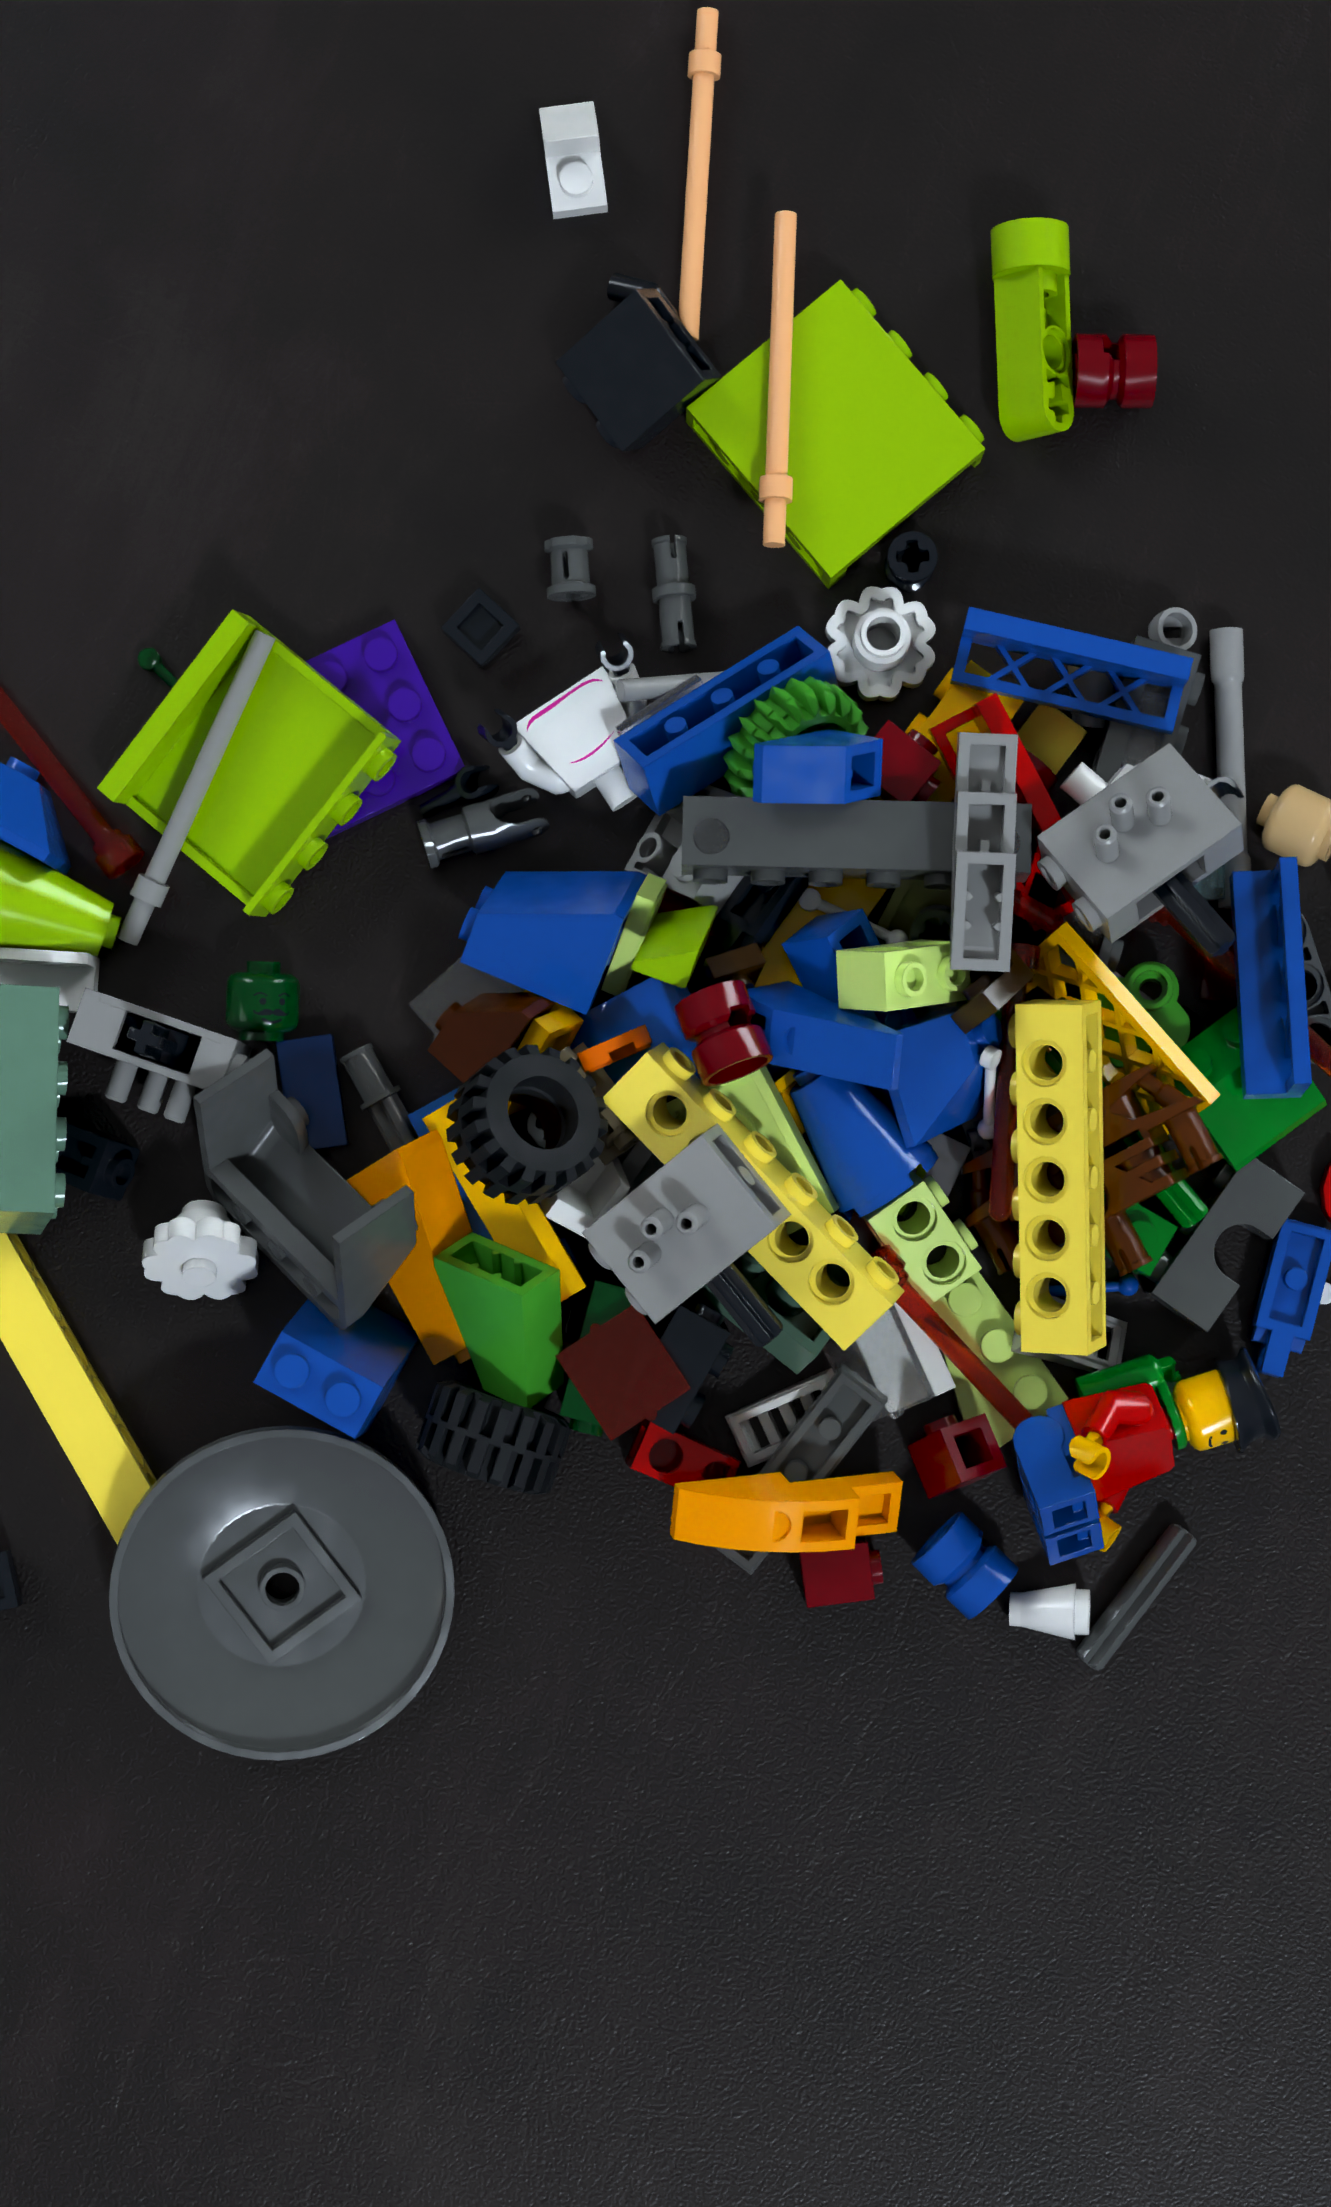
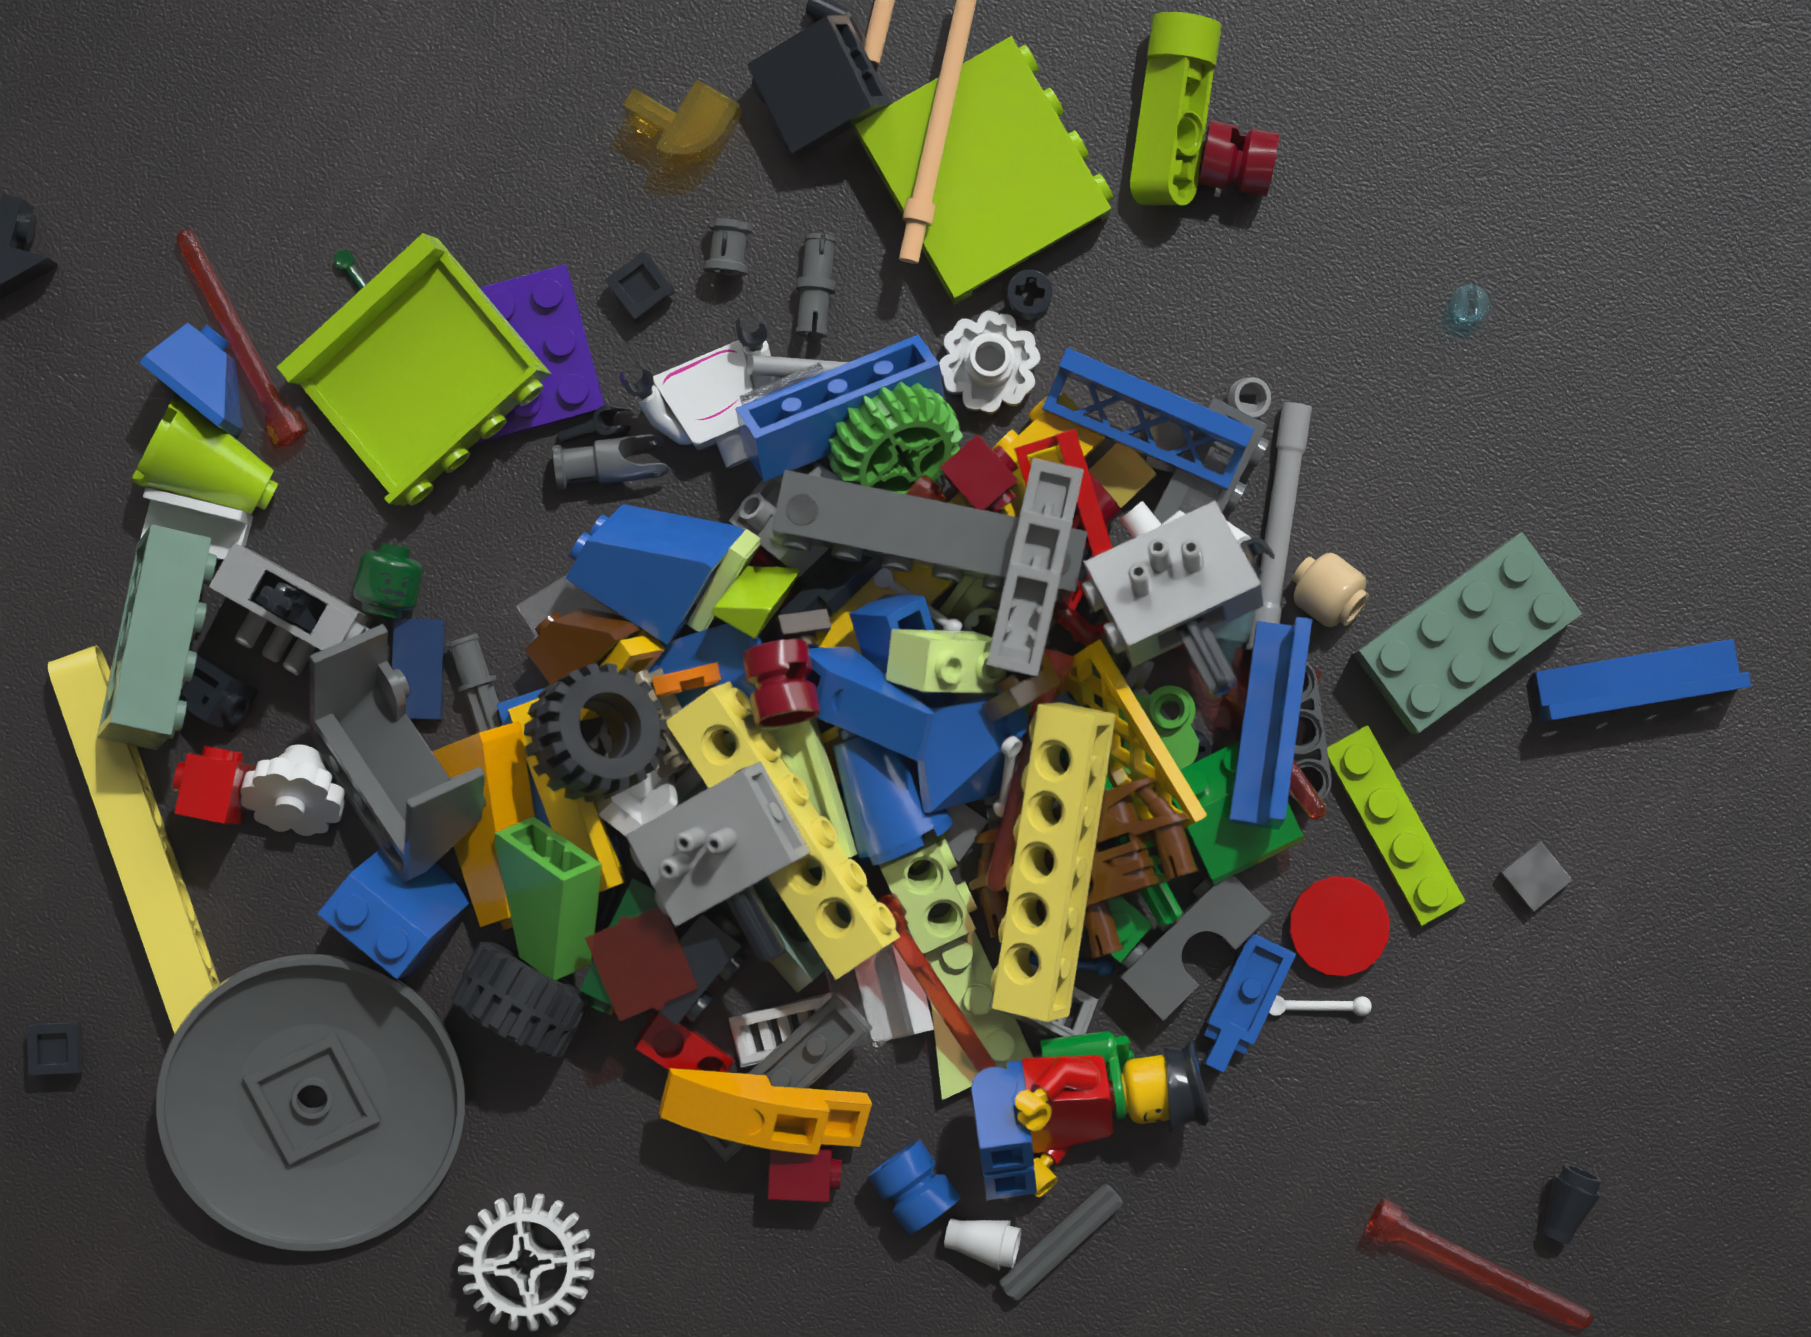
camera: 10 degrees right, 0 degrees up
(108, 1262) = (211, 785): none -> red brick
(150, 888) = (309, 461): light grey bar -> none
(507, 449) = (692, 132): none -> clear yellow brick
(525, 1734) = (528, 1287): none -> white gear
(818, 768) = (906, 467): blue slope -> none
(955, 1454) = (923, 1088): dark red brick -> none

